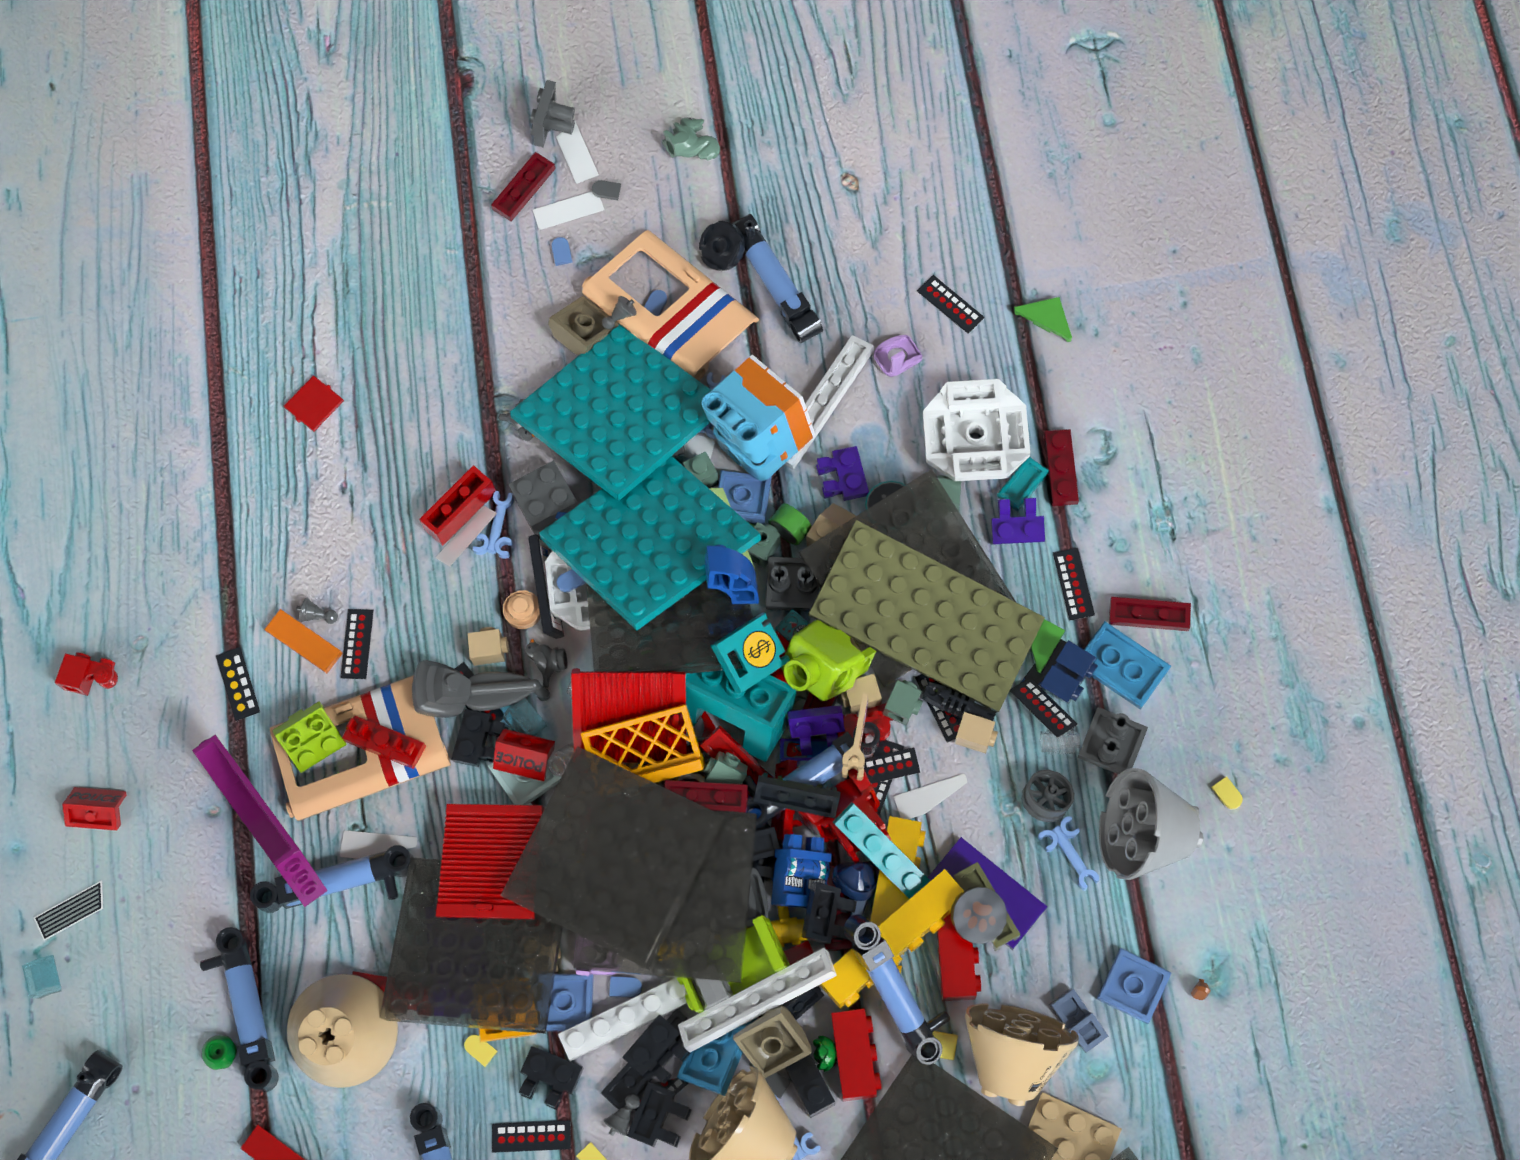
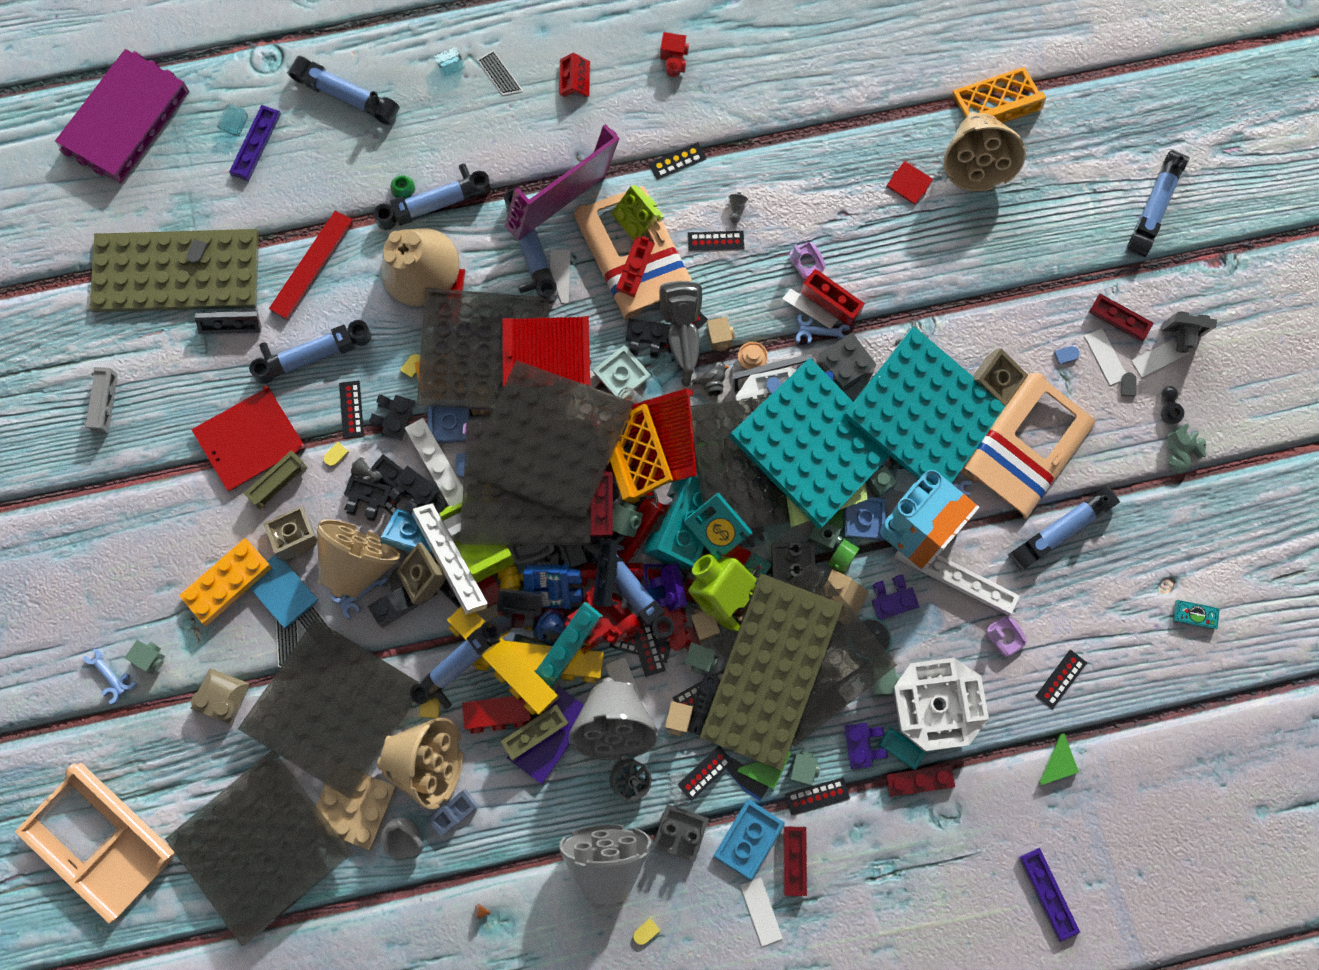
camera: 75 degrees right, 5 degrees up
(239, 286) = (1005, 110): none -> light orange fence
(293, 307) = (983, 153): none -> tan cone
(303, 641) = (713, 201): orange tile -> none
(392, 542) = (807, 248): none -> lavender piece
(414, 142) = (1149, 223): none -> piece
(522, 754) = (634, 368): red panel -> none
(623, 309) = (1016, 405): dark grey piece -> none
(625, 147) = (1170, 395): none -> black plate
(656, 302) = (1029, 434): medium blue piece -> none
(721, 246) = (1087, 481): black tile -> none
(732, 574) = (782, 505): blue brick -> none
(825, 1053) = (417, 616): green plate -> none
(855, 1055) = (417, 639): red brick -> none
(857, 758) = (651, 616): tan flag -> none
(886, 155) = (1196, 614): none -> teal tile
(978, 806) = (613, 723): none -> light grey cone
(978, 915) = (522, 724): tile -> none
(1042, 593) = (804, 768): none -> sand green brick
(1060, 835) = (600, 792): light blue bar -> none
(1069, 672) = (736, 793): dark blue piece -> none
(1110, 1083) = (401, 839): none -> light grey hair
(1134, 986) = (482, 857): medium blue tile -> none
(1193, 345) = (1049, 895): none -> dark purple tile
(1206, 659) = (761, 911): none -> white sticker

